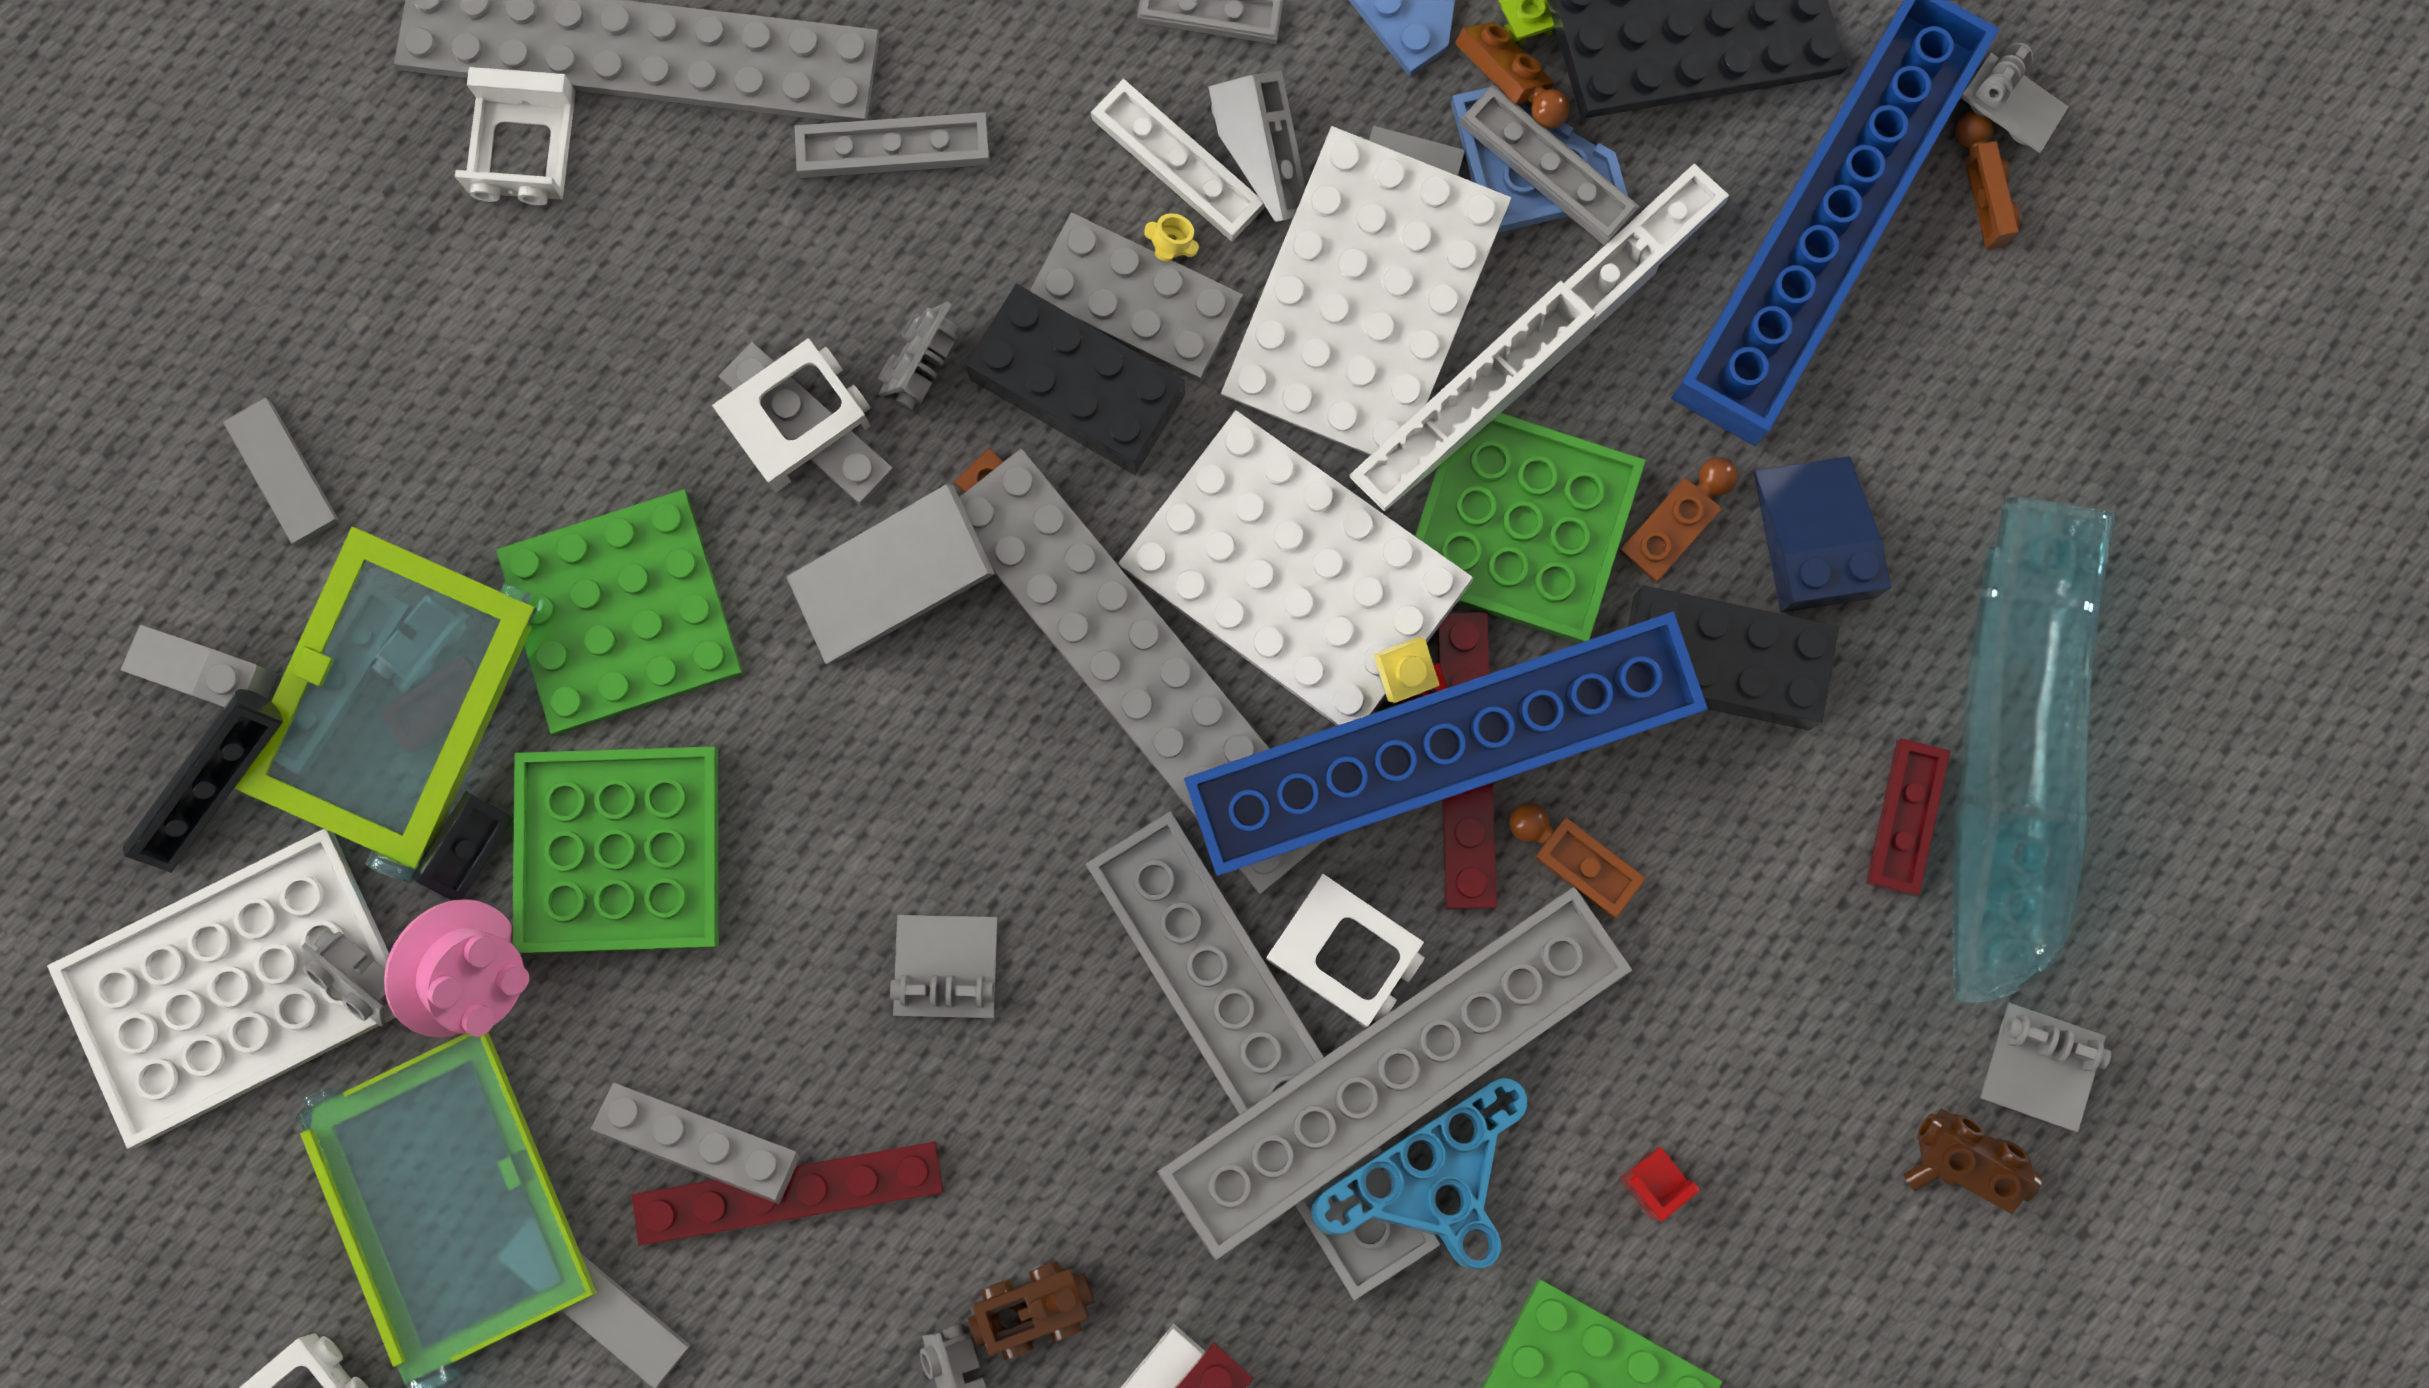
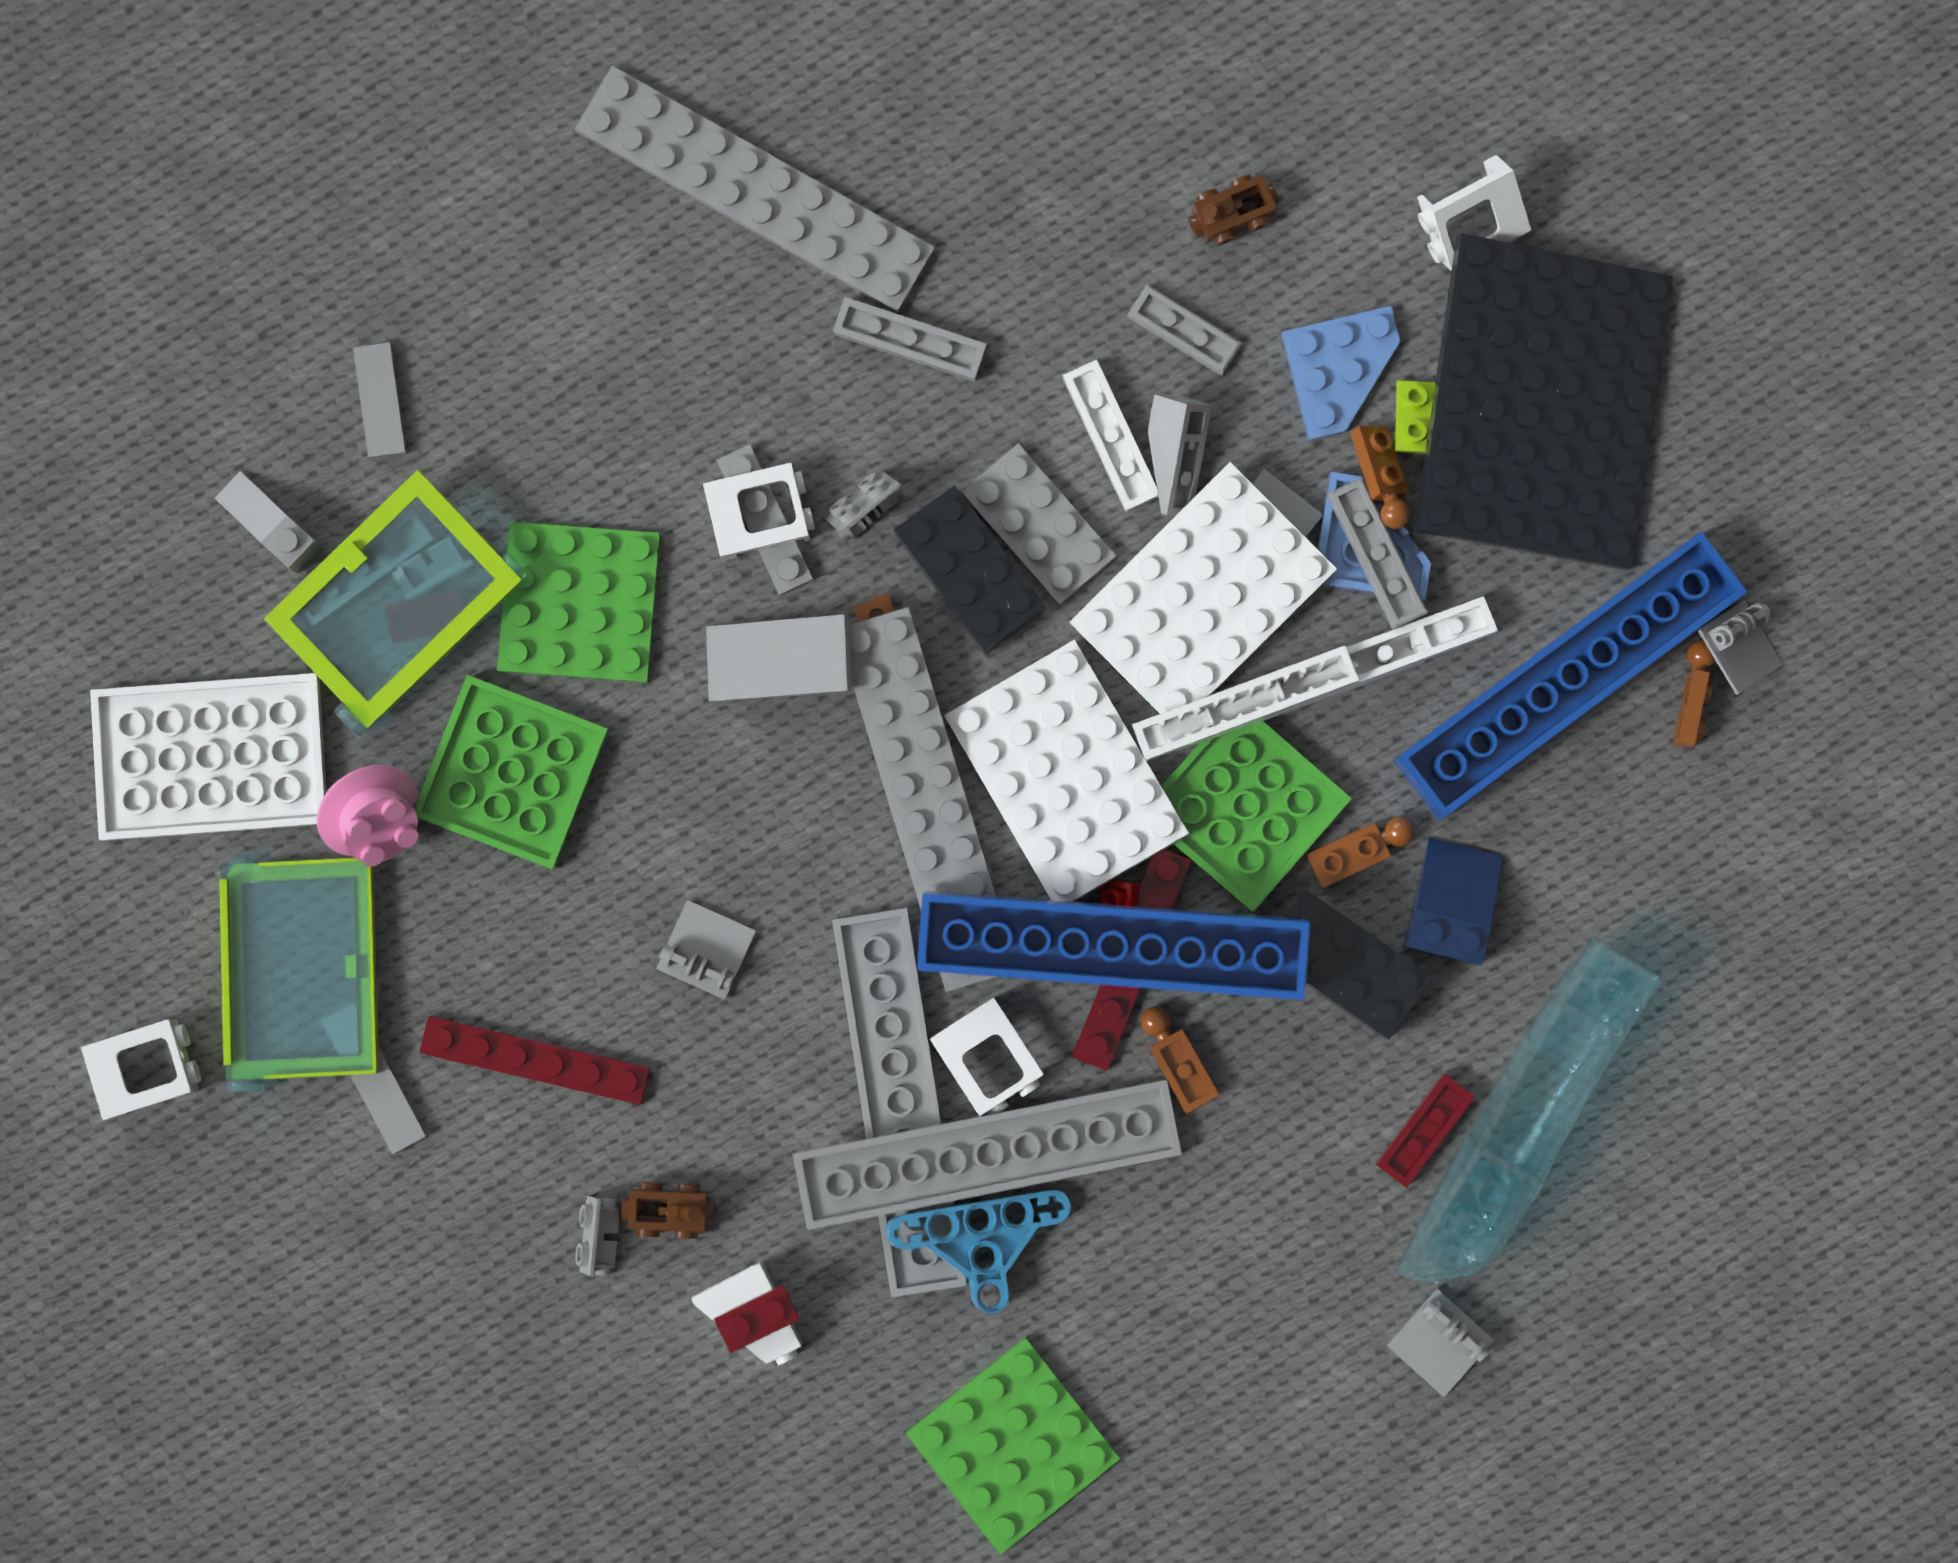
camera: 25 degrees right, 5 degrees up
(204, 781) = (246, 607): black brick -> none
(335, 966) = (288, 775): light grey hinge -> none
(462, 847) = (405, 726): black plate -> none
(521, 99) = (655, 194): white window -> none
(696, 1143) = (485, 999): light grey plate -> none
(1172, 237) = (1089, 486): light yellow plate -> none
(1406, 669) = (1112, 880): light yellow plate -> none
(1659, 1185) = (1135, 1308): red panel -> none
(1965, 1155) = (1360, 1385): reddish brown brick -> none

